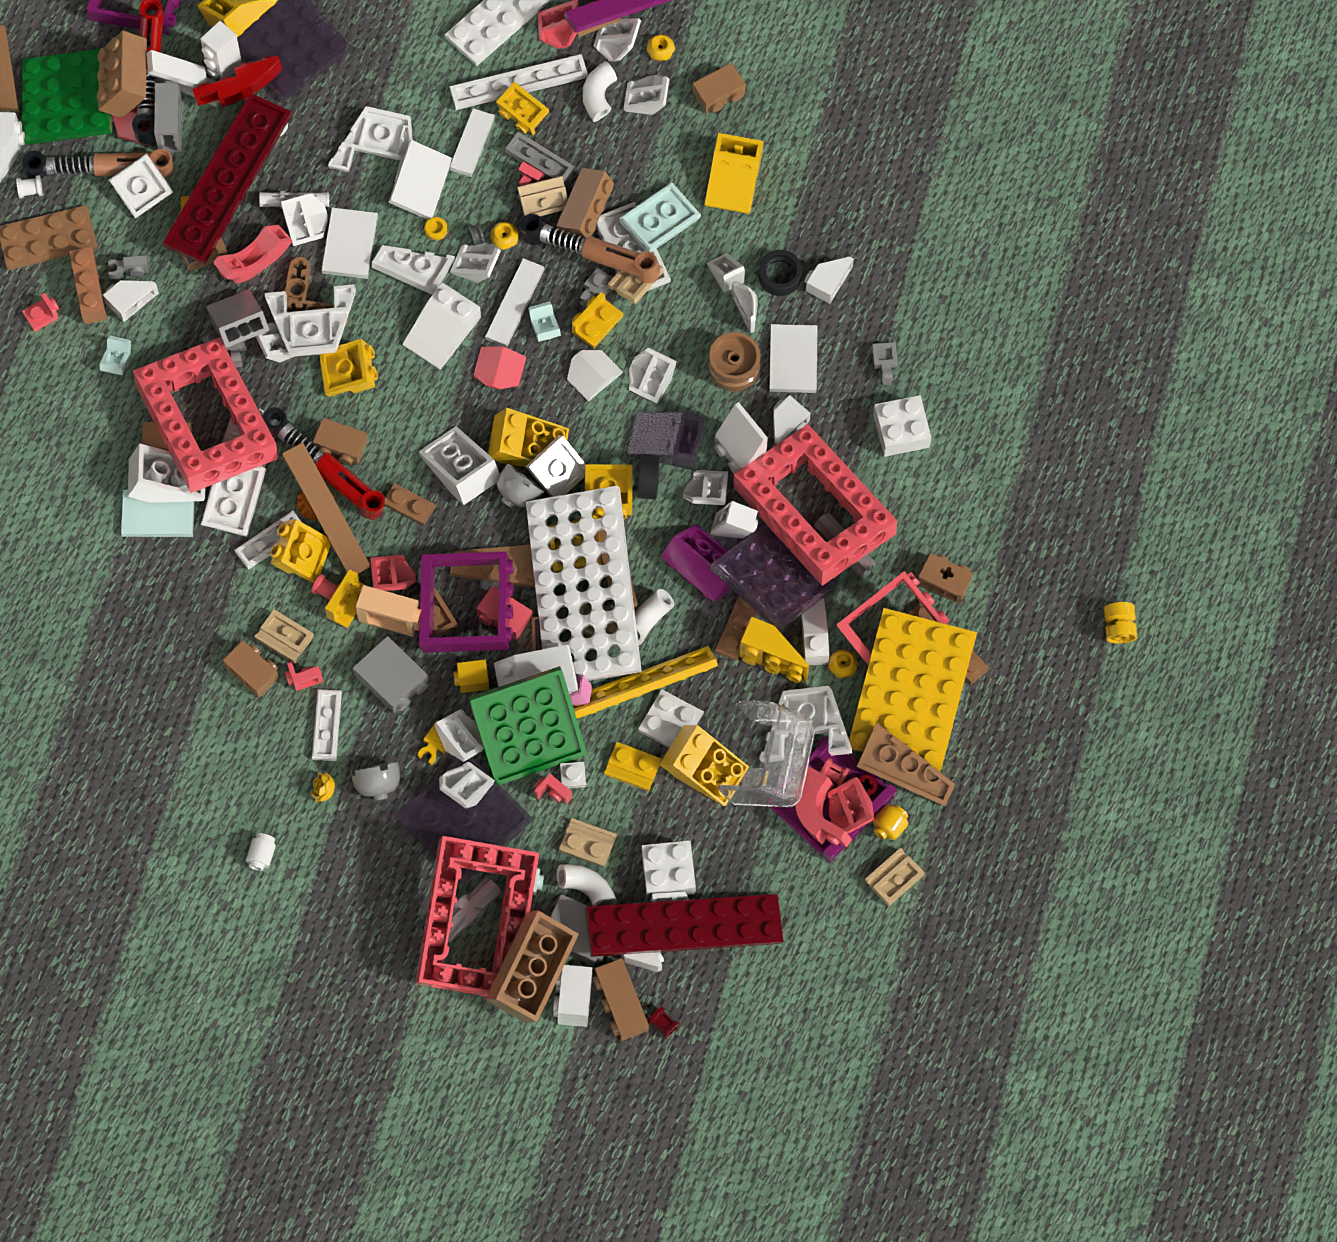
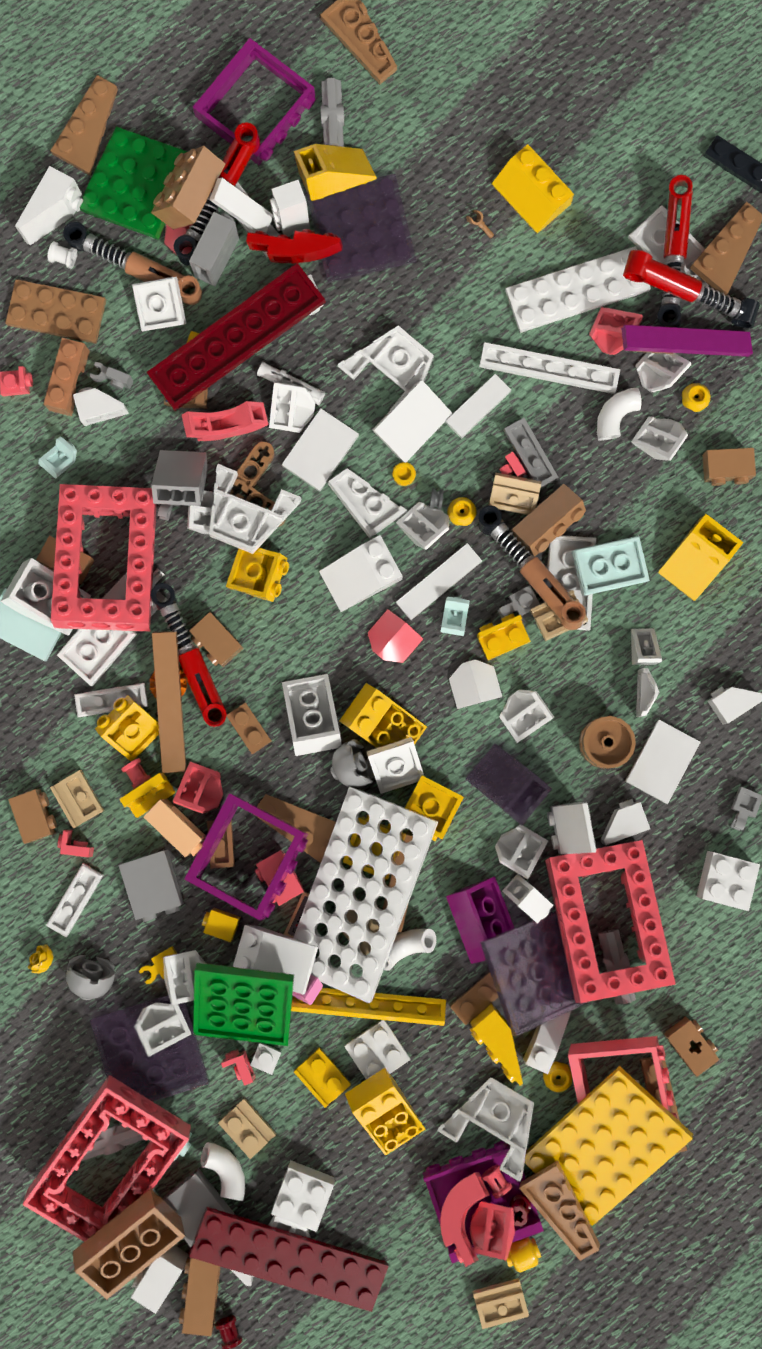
camera: 30 degrees right, 15 degrees up
(521, 108) = (539, 397): yellow bracket -> none
(648, 476) = (472, 815): black tyre -> none
(775, 288) = (710, 677): black tyre -> none
(785, 762) = (460, 1155): clear windscreen -> none

